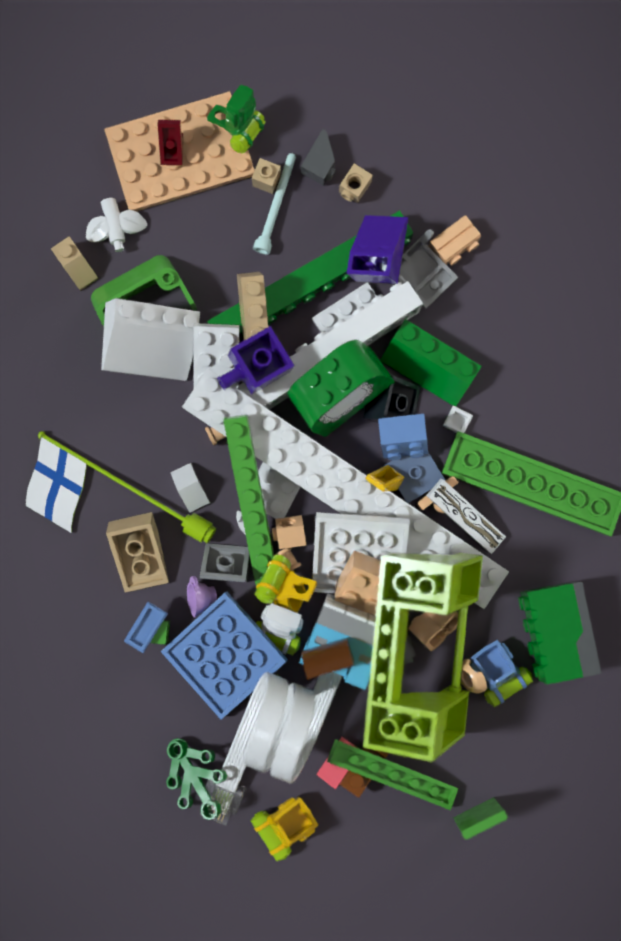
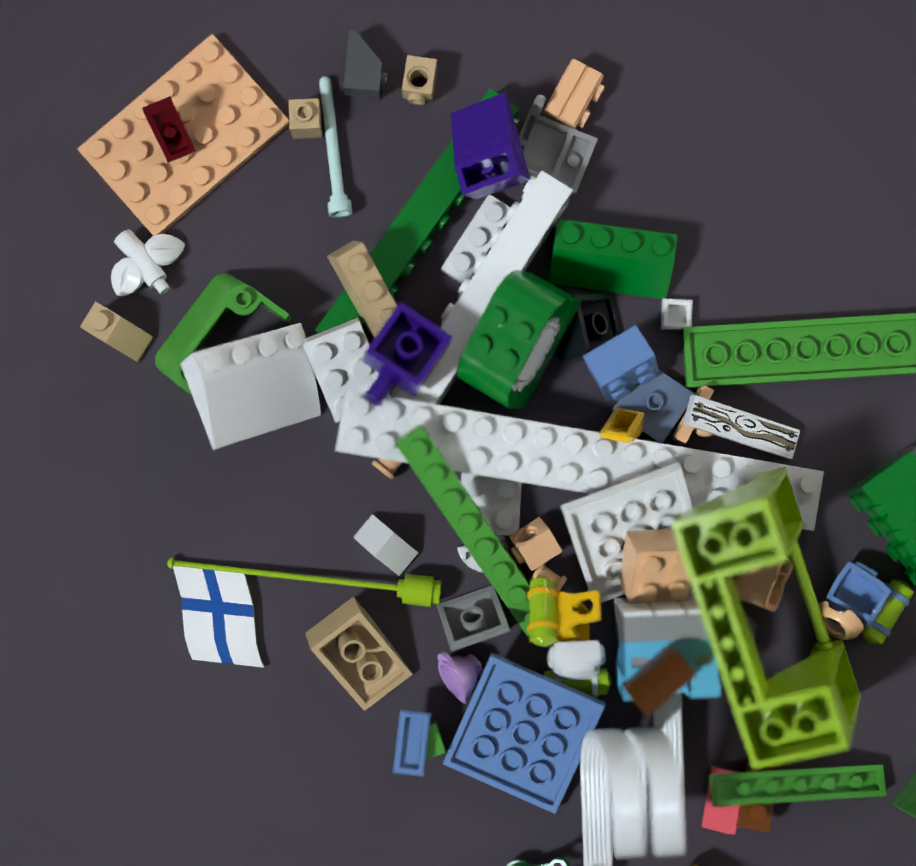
camera: 25 degrees left, 0 degrees up
(241, 119) = (244, 61): green piece -> none

